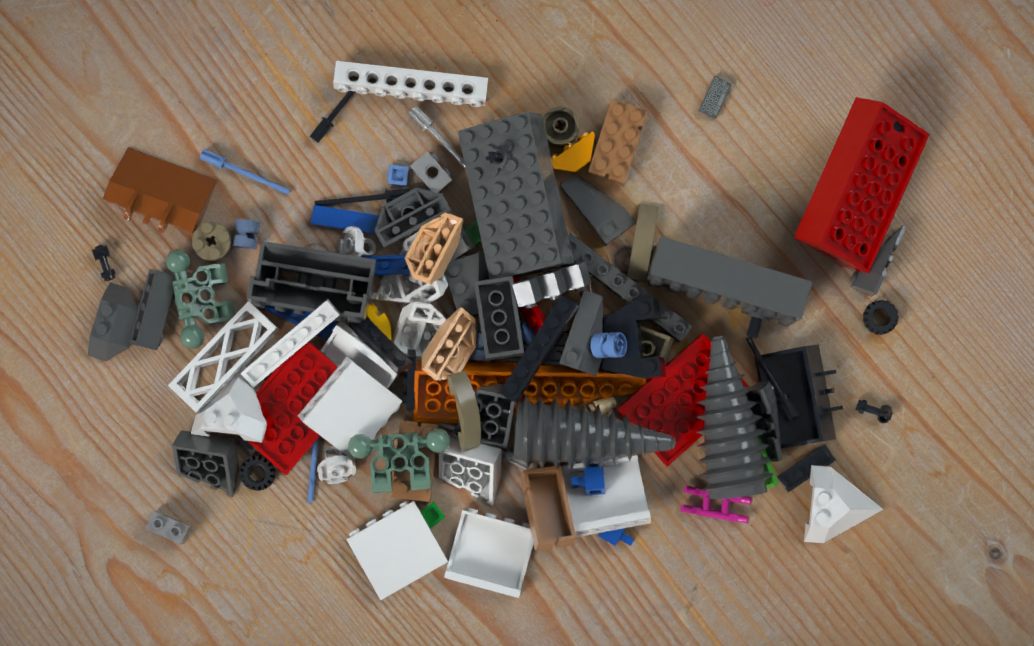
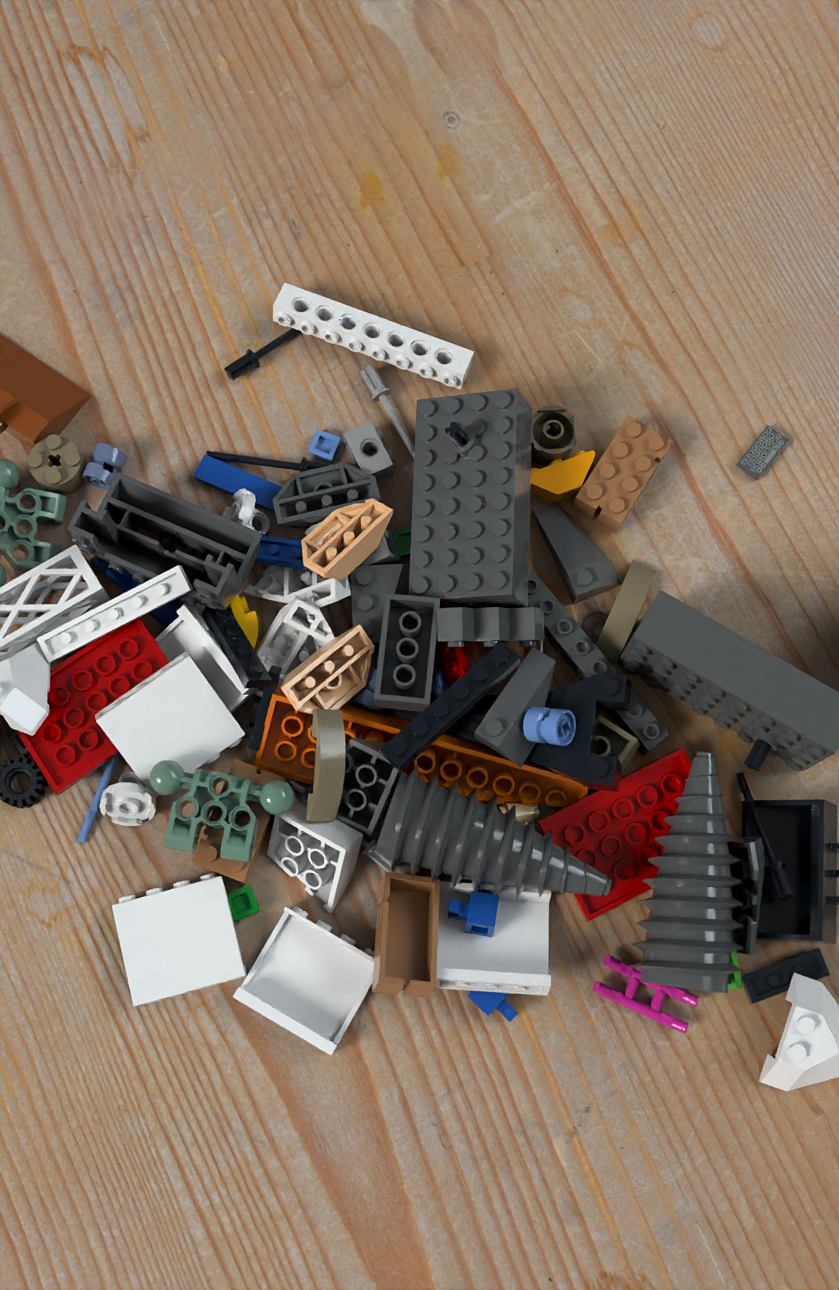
camera: 15 degrees right, 10 degrees down
(220, 161) = (103, 372): medium blue piece -> none

